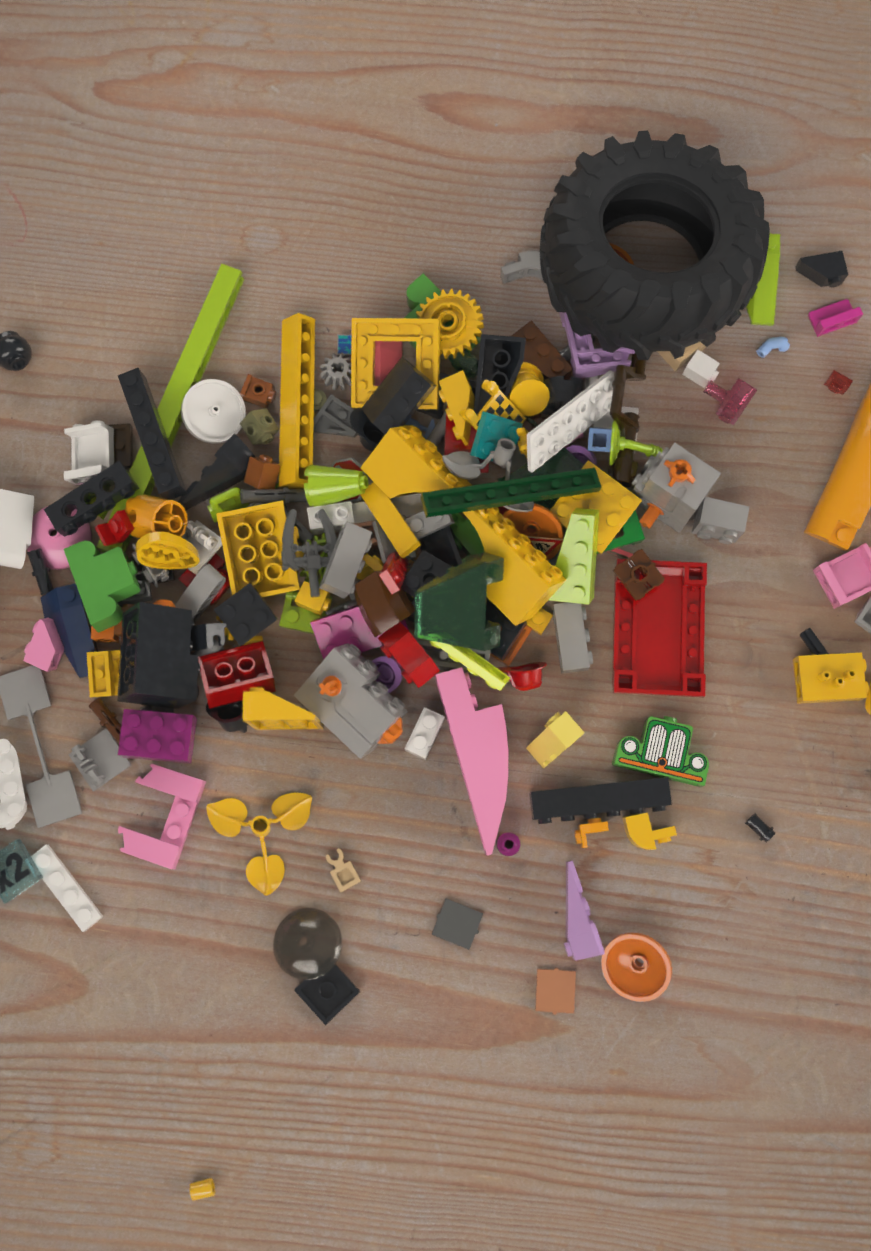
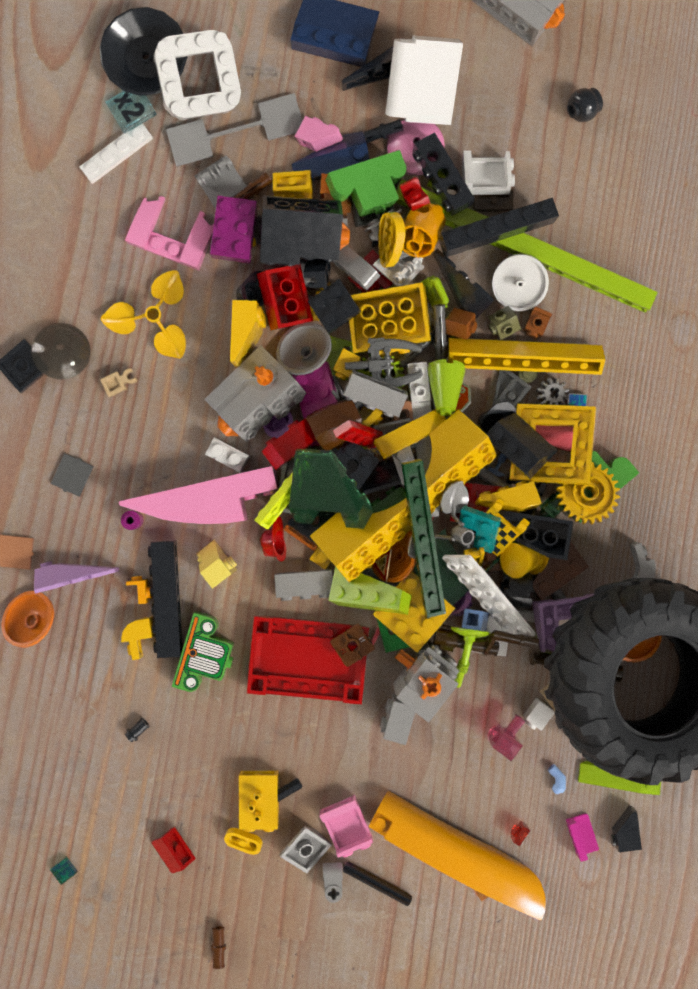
camera: 90 degrees right, 10 degrees up
(285, 648) = (298, 343): none -> light grey dish

